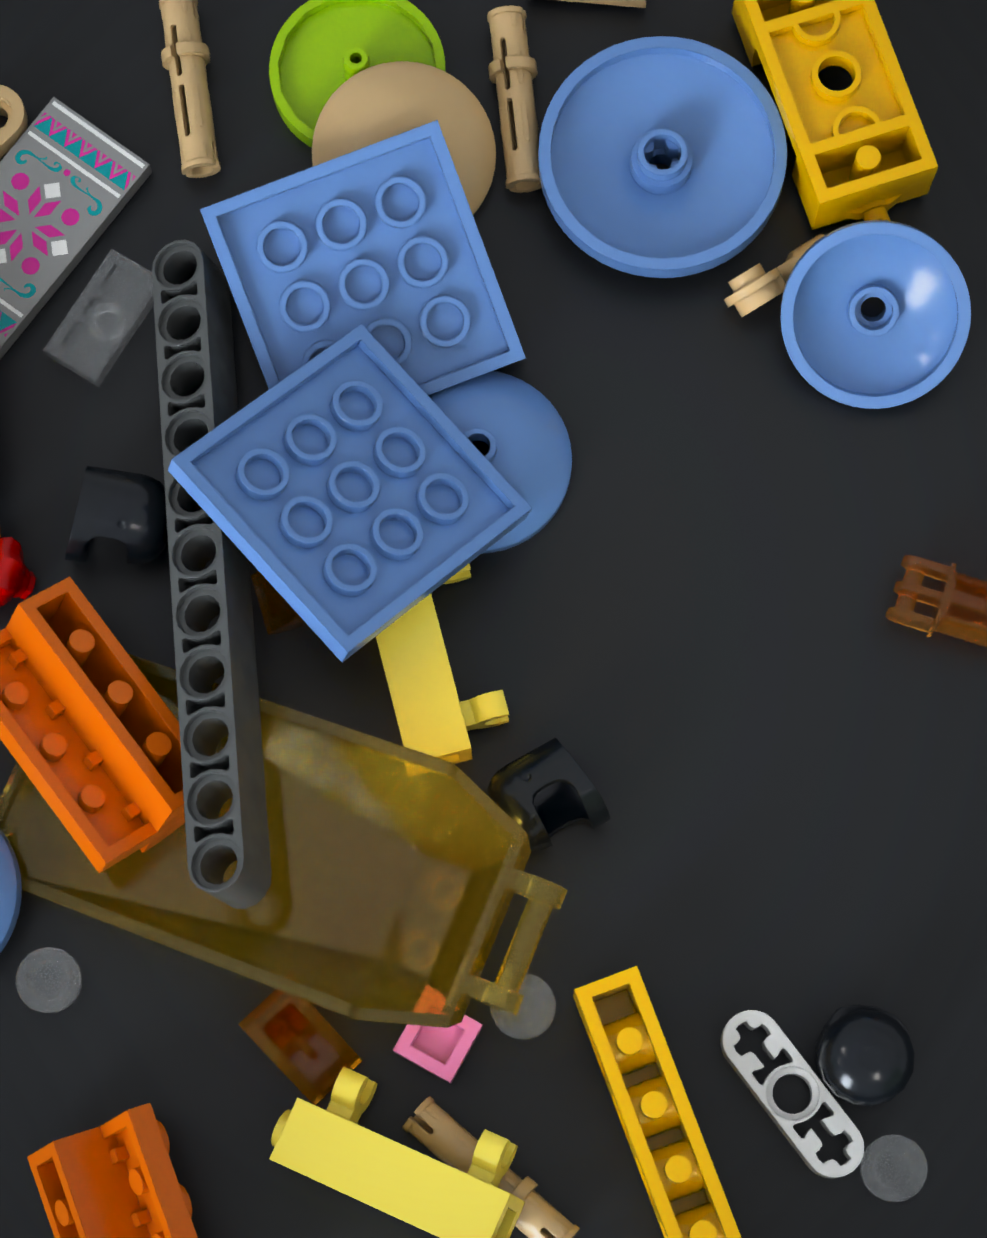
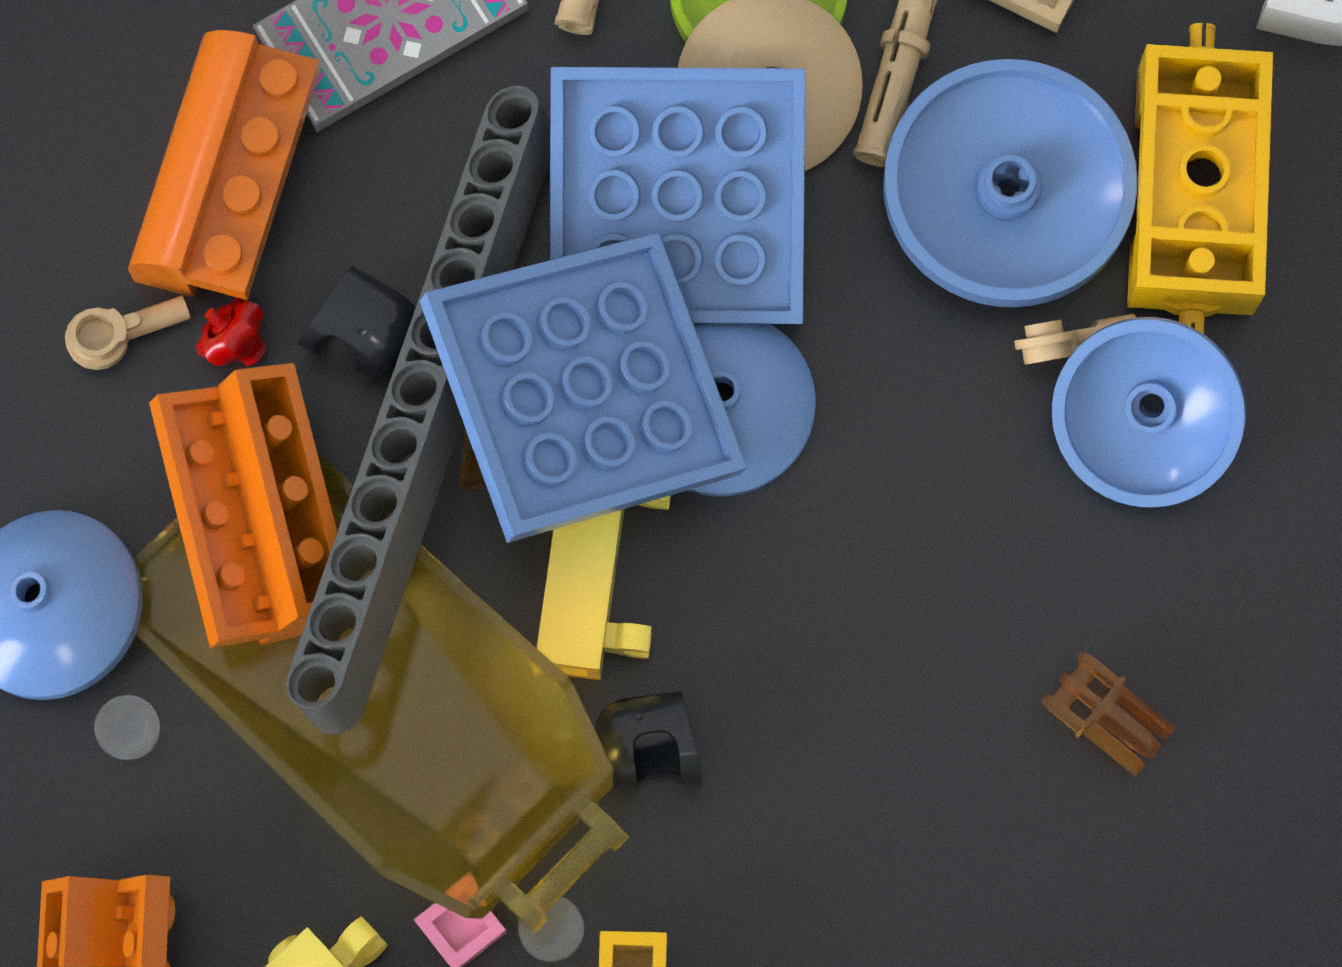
camera: 20 degrees right, 0 degrees up
(103, 318) = (425, 132): clear plate -> none
(300, 1043) = (330, 879): clear orange slope -> none

